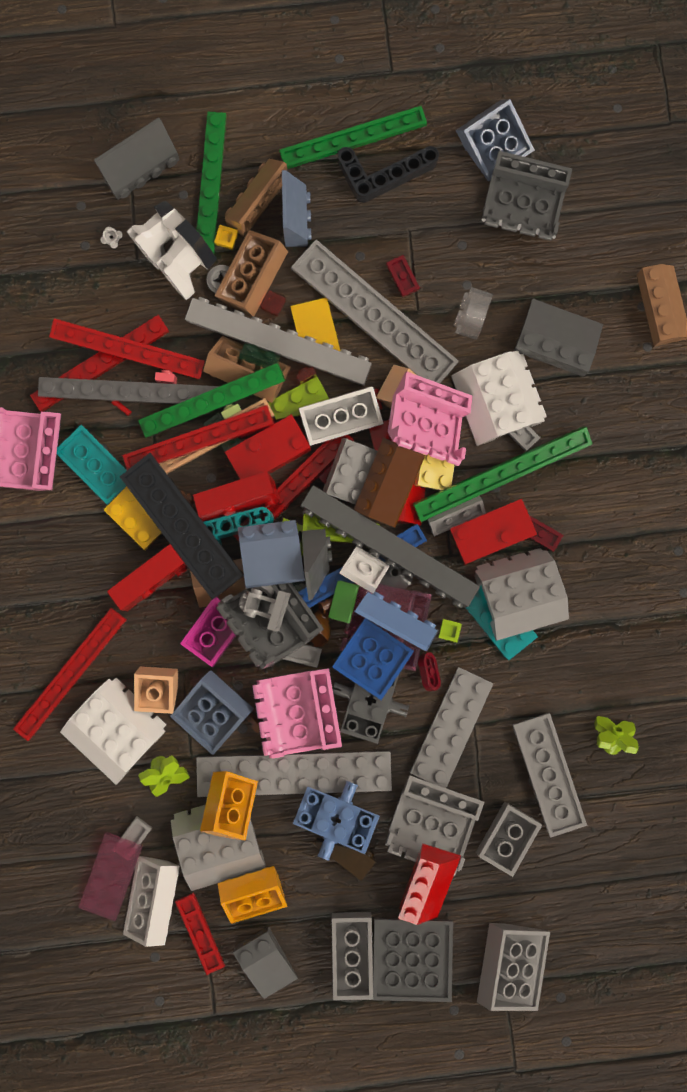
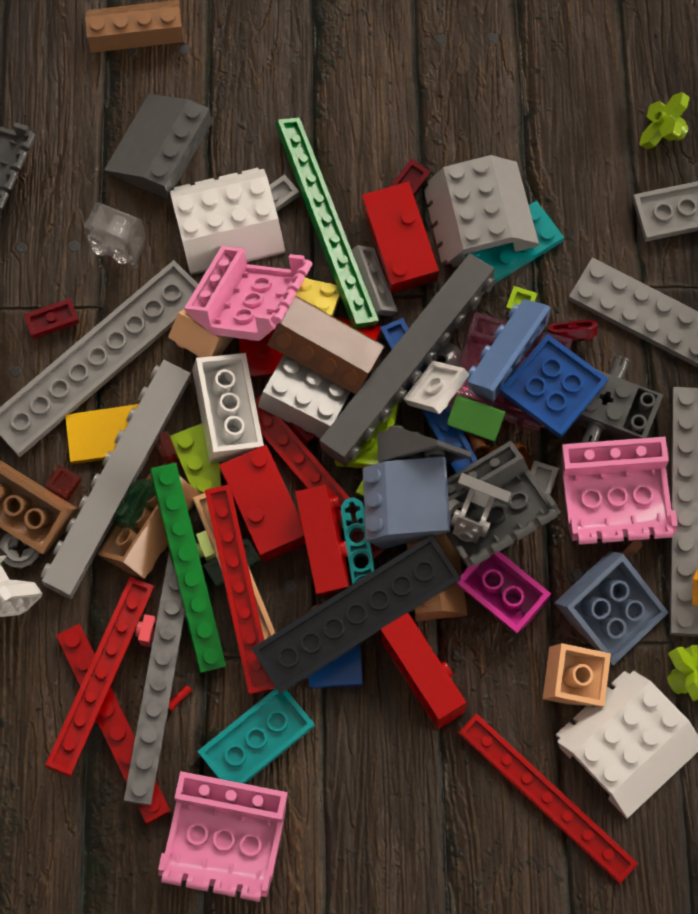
camera: 75 degrees left, 15 degrees down
(133, 518) = (336, 687): yellow plate -> none

